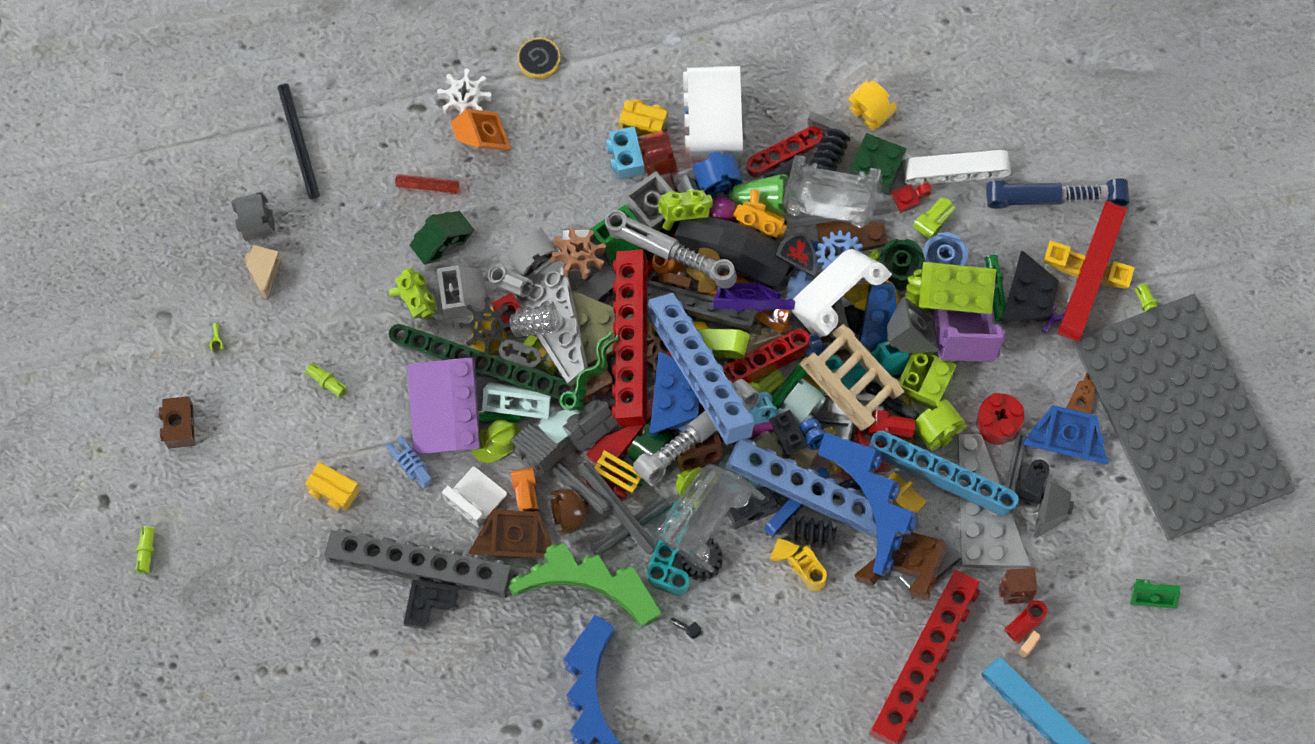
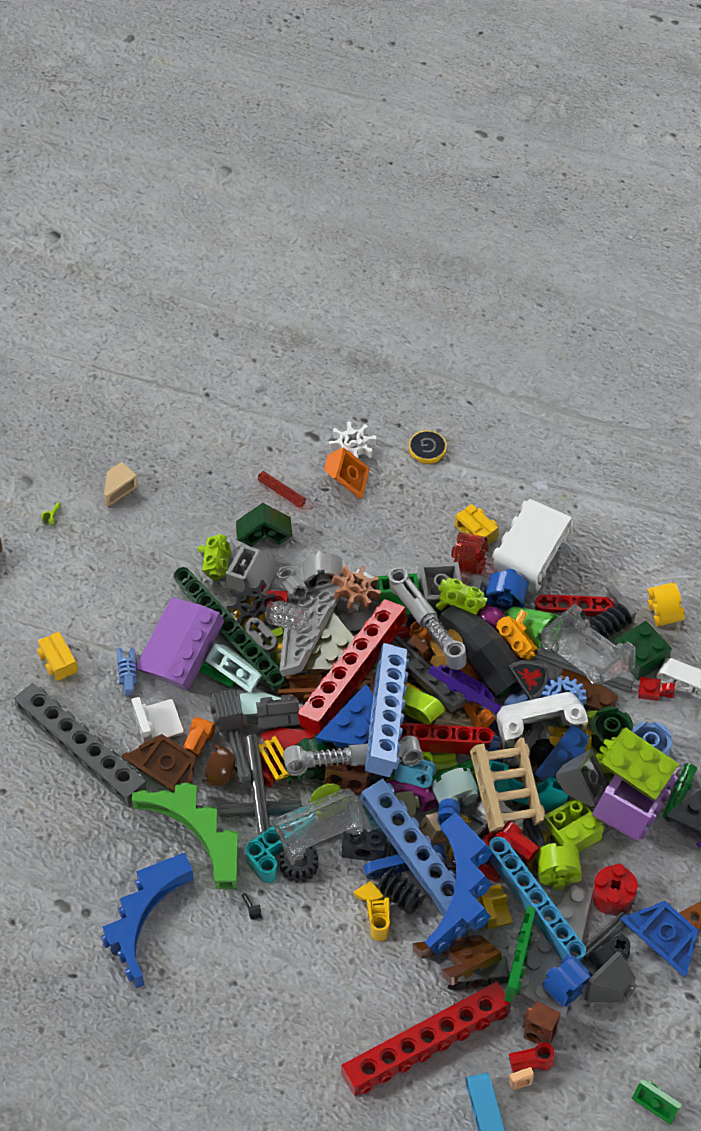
camera: 30 degrees right, 15 degrees down
(253, 216) = (137, 443): dark grey brick -> none
(298, 141) = (208, 414): black axle -> none
(326, 380) = (108, 582): lime pin -> none
(424, 597) = (67, 771): black plate -> none
(496, 441) = (201, 691): lime piece -> none
(574, 401) = (279, 686): green flag -> none
(629, 152) = (444, 540): medium azure brick -> none
(788, 432) = (428, 799): black hips -> none
(931, 222) = (663, 713): lime piece -> none
(960, 533) = (521, 954): none -> green wing
(1018, 532) = (567, 980): none -> blue brick

